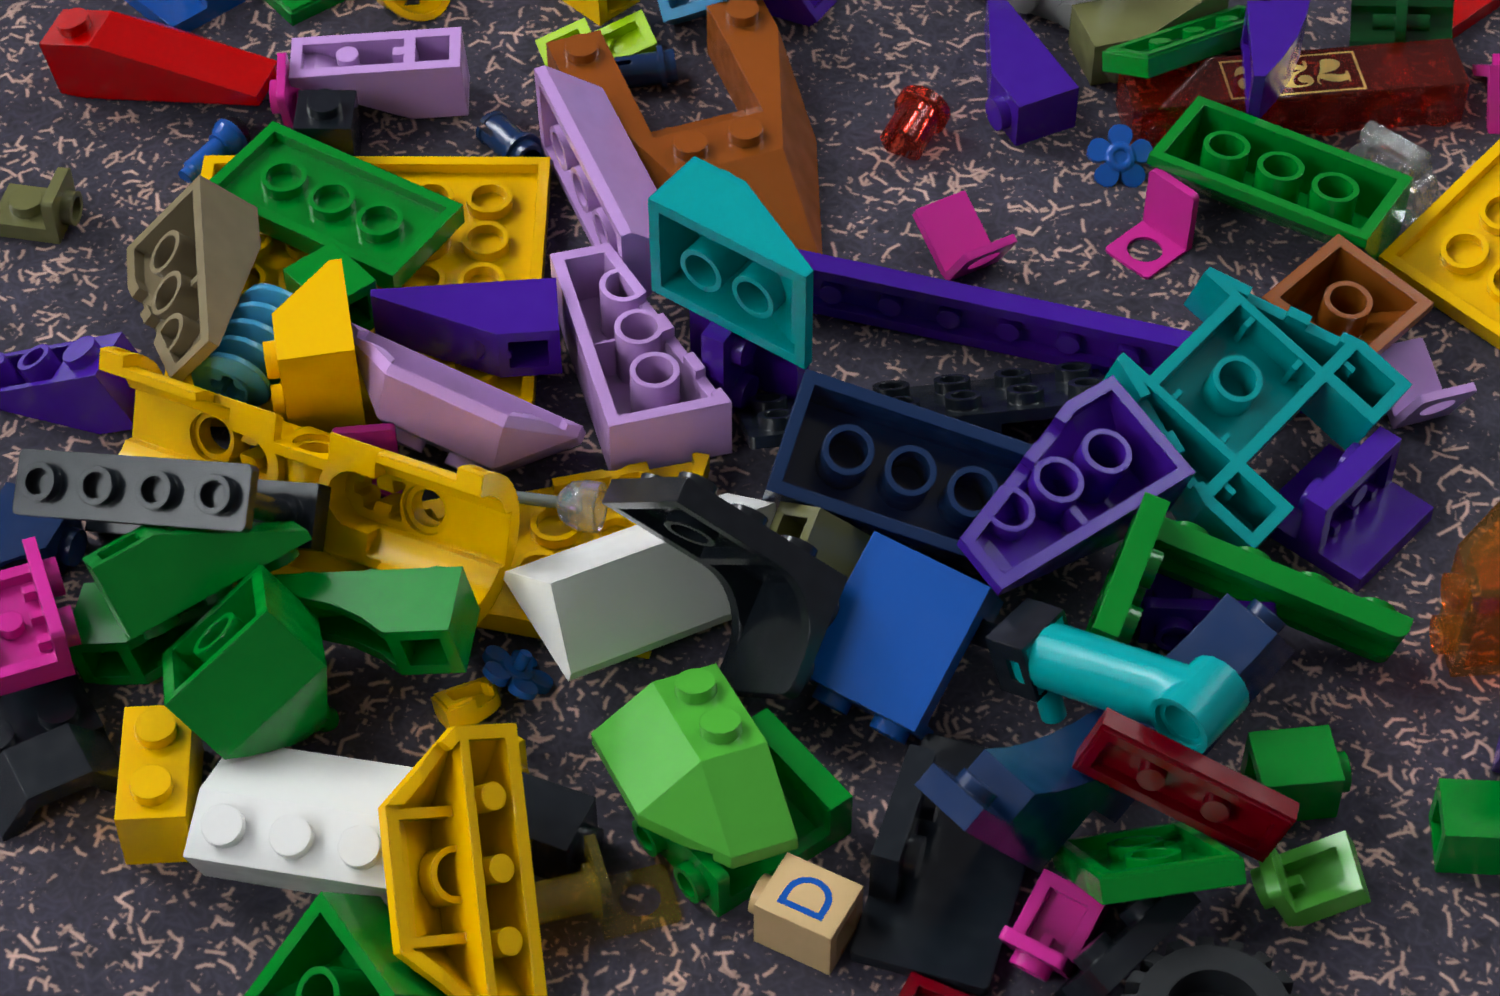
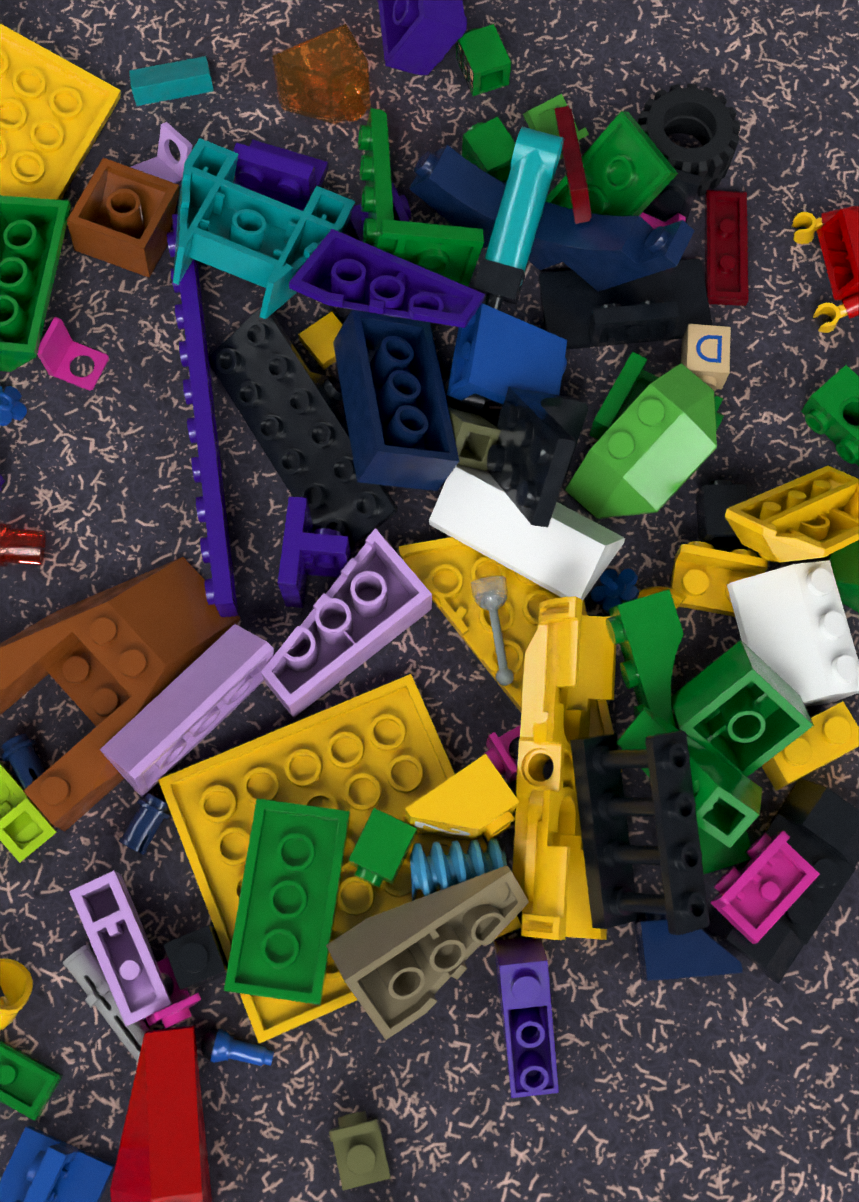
camera: 115 degrees left, 25 degrees up
(456, 410) = (447, 702): lavender wedge -> none
(479, 325) = (363, 716): dark purple slope -> none
(599, 895) = (750, 467): clear yellow bracket -> none
(730, 260) = (301, 530): teal slope -> none
(958, 236) = (133, 470): dark pink bracket -> none

